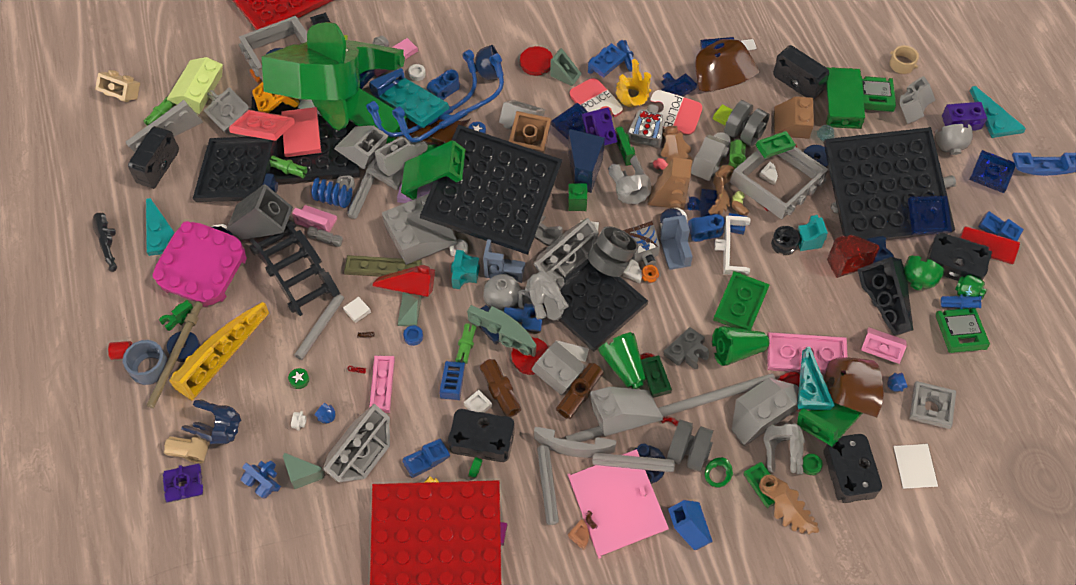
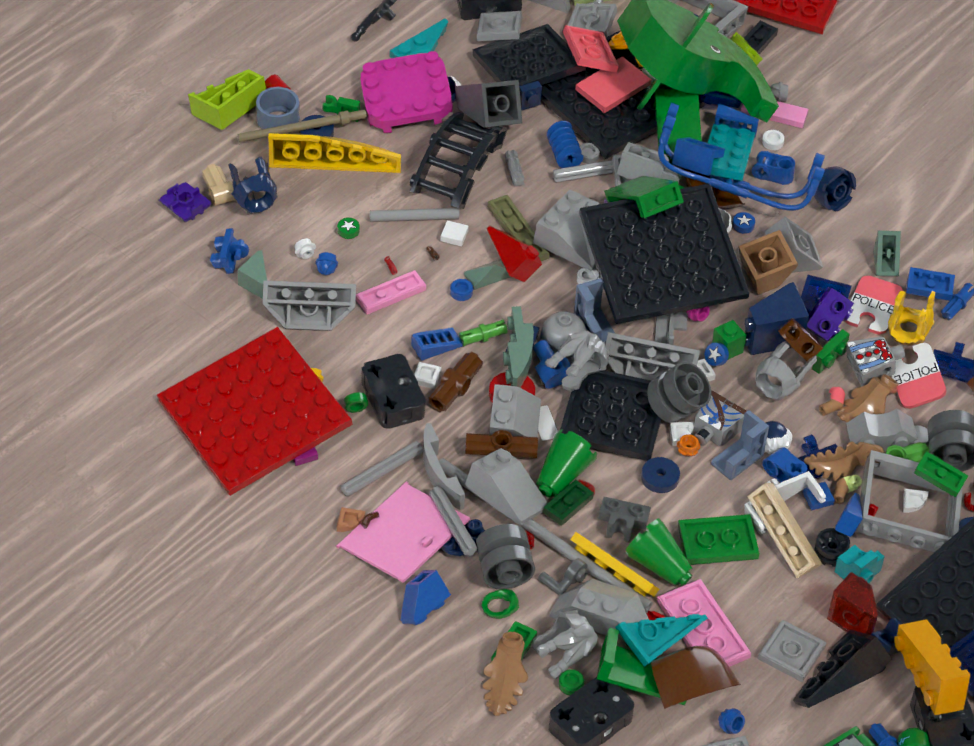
camera: 55 degrees right, 10 degrees down
(107, 392) = (229, 100): none -> lime wedge
(185, 168) = (499, 26): none -> light grey tile
(288, 166) = (563, 95): bright green pin -> none
(314, 217) = (528, 150): bright pink panel -> none
(361, 144) = (636, 131): light grey slope -> none
(416, 118) = (696, 155): none -> blue panel
(427, 458) = (337, 363): blue slope -> none
(464, 269) = (561, 288): teal brick -> none
(536, 60) = (874, 221): red tile -> none
(585, 210) = (716, 354): none -> blue tile
(614, 155) = (800, 339): none -> reddish brown leg
(663, 297) = (662, 466): none -> dark blue piece
(672, 185) = (808, 408): medium nougat wedge -> none
(722, 409) = (575, 573): none -> dark grey plate
(736, 376) = (622, 572): none -> yellow plate
(760, 258) = (784, 529): none -> tan slope
(782, 212) = (850, 516): none -> blue slope
(854, 312) = (792, 650): none -> light grey tile
(884, 345) = (770, 690): bright pink panel -> none
(922, 274) = (889, 688): green cylinder -> none
(929, 239) = (933, 667): none -> light orange wedge

